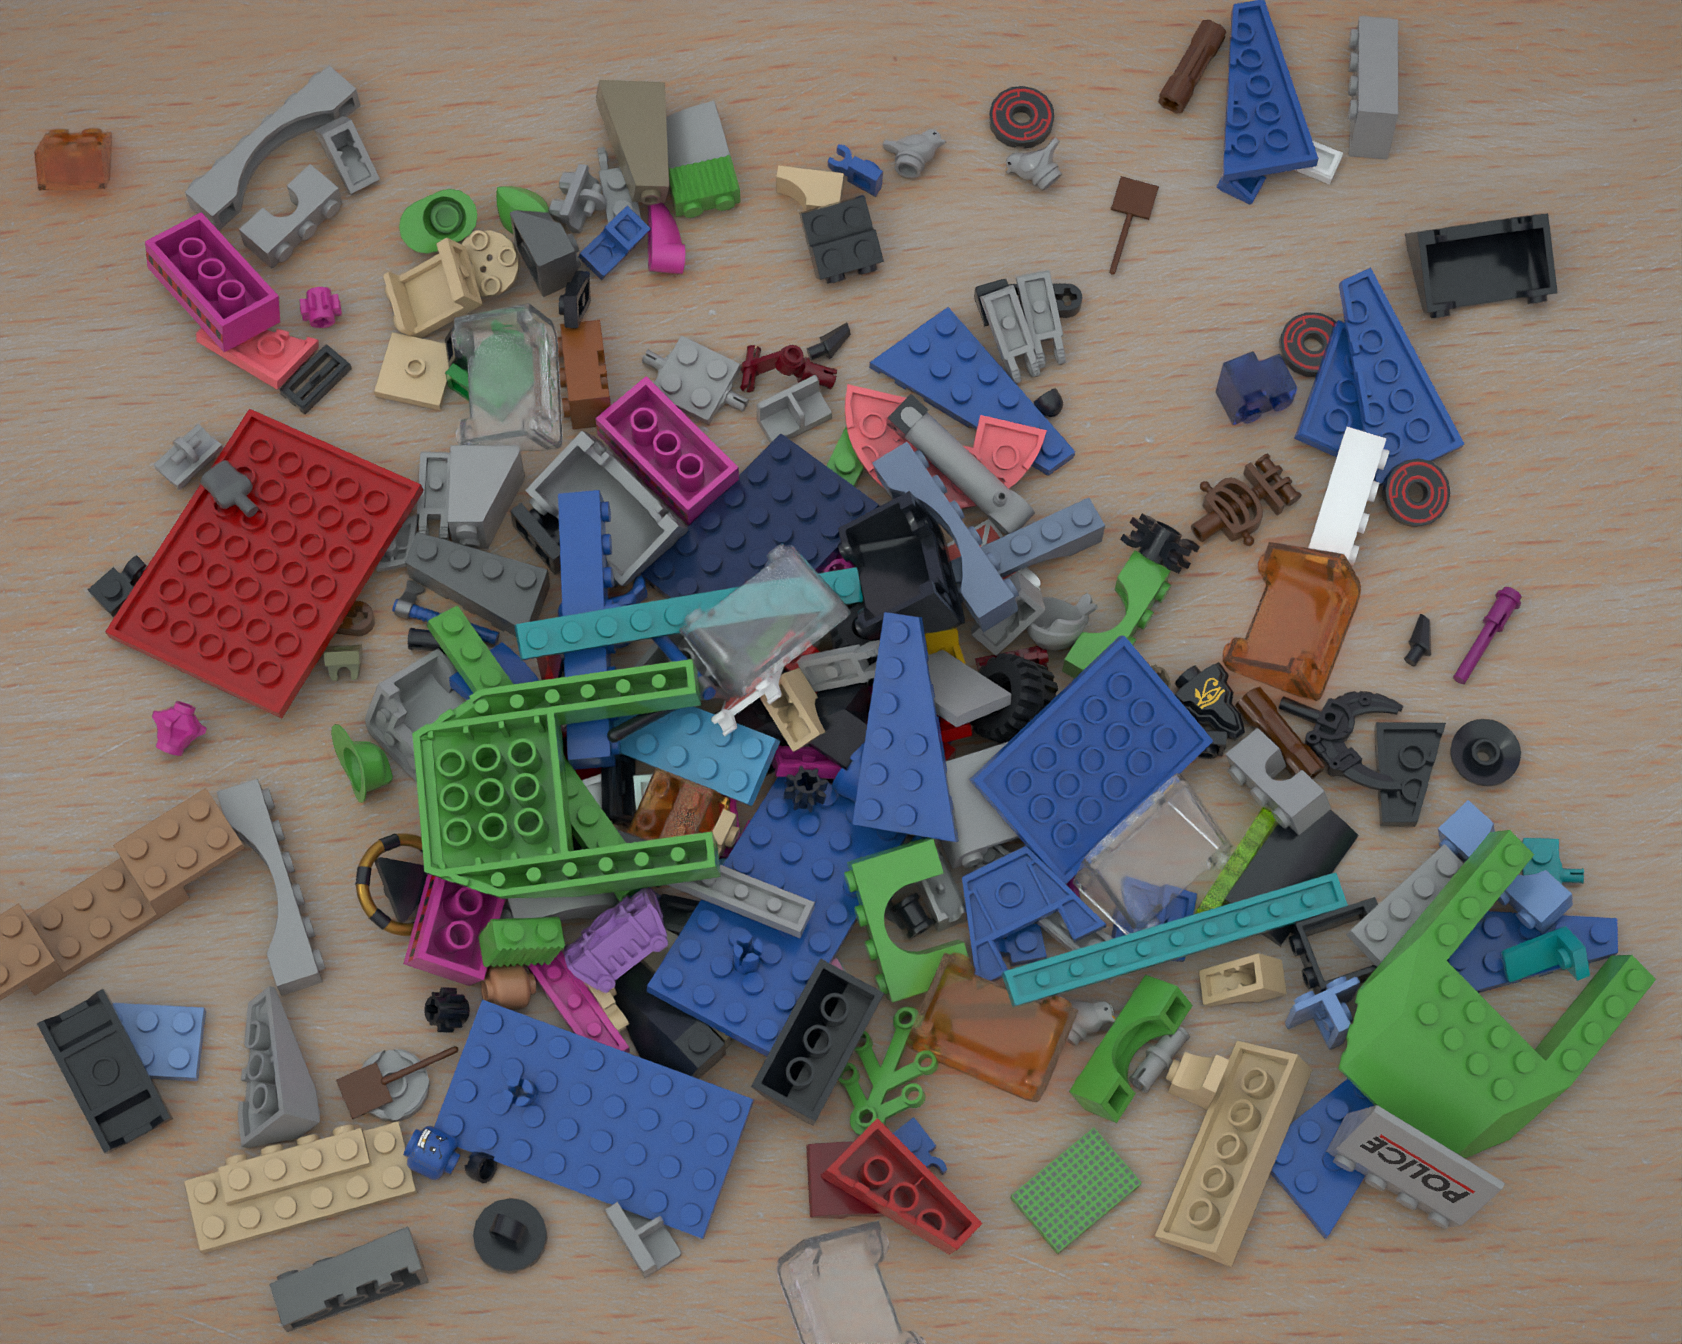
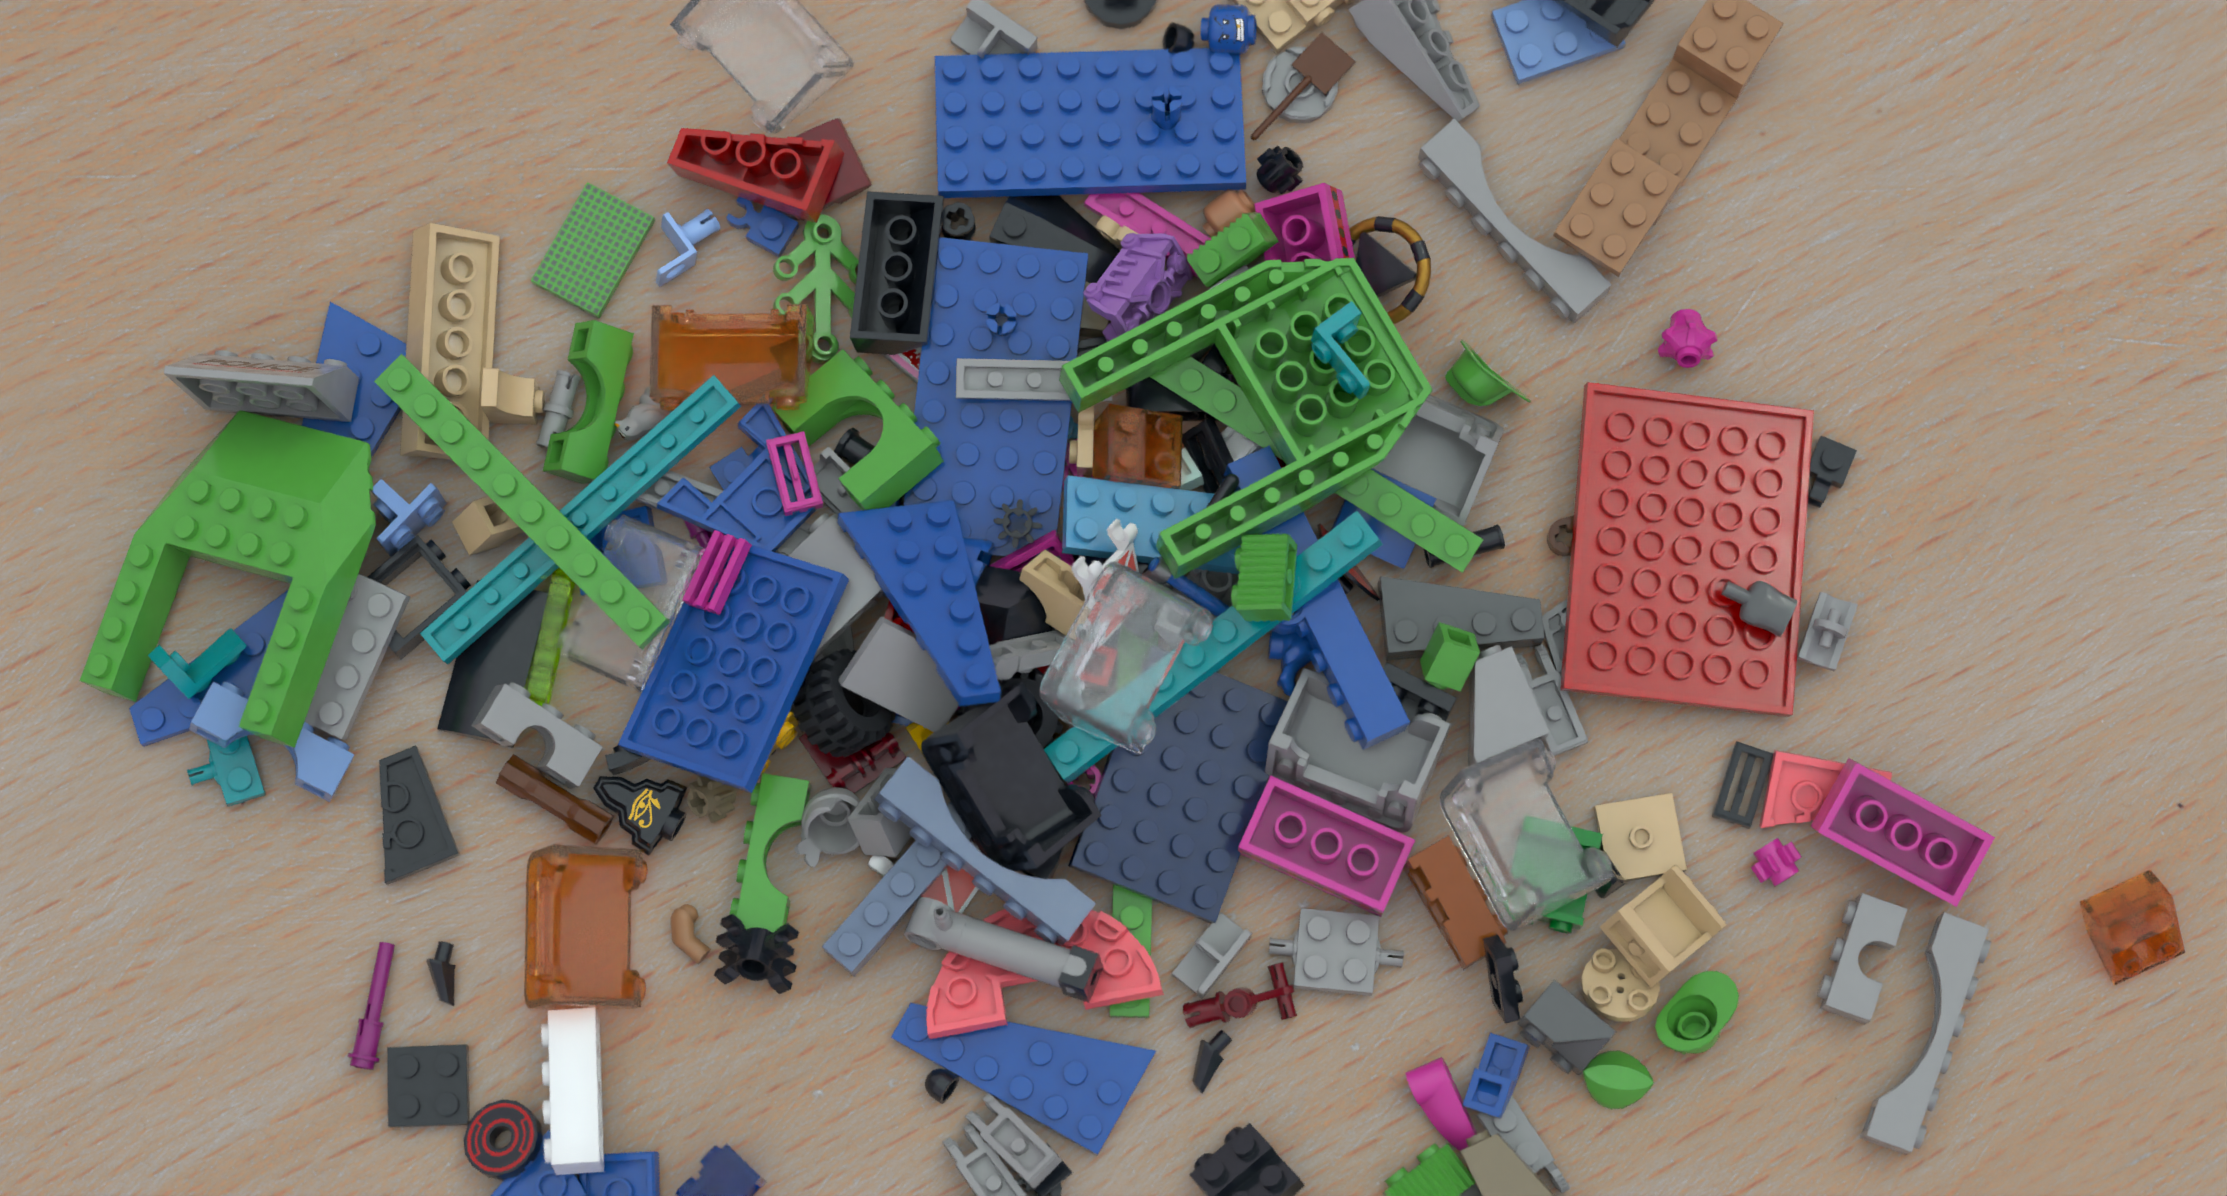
camera: 160 degrees right, 10 degrees up
(343, 656) = (1557, 485): olive tile -> none
(347, 153) = (1841, 1059): light grey arch -> none
(406, 608) = (1520, 567): piece -> none
(469, 805) = (1340, 328): none -> teal bracket
(500, 539) = (1449, 657): none -> bright green brick
(581, 199) = (1556, 1116): light grey hips -> none
(623, 630) = (1265, 577): none -> bright green brick
(746, 1068) = (953, 213): none -> black bush
(974, 934) = (801, 504): none -> dark pink tile
(990, 1164) = (683, 239): none -> light blue bracket
(1098, 823) = (711, 571): none -> dark pink tile
(1211, 594) = (683, 933): none -> medium nougat arm
(1224, 966) = (522, 501): none -> bright green plate
(1225, 506) = (708, 1022): reddish brown torso -> none
(1335, 726) = (500, 834): black bar -> none
(1462, 560) = (428, 1086): none -> black plate
(1495, 741) = (315, 858): black dish -> none

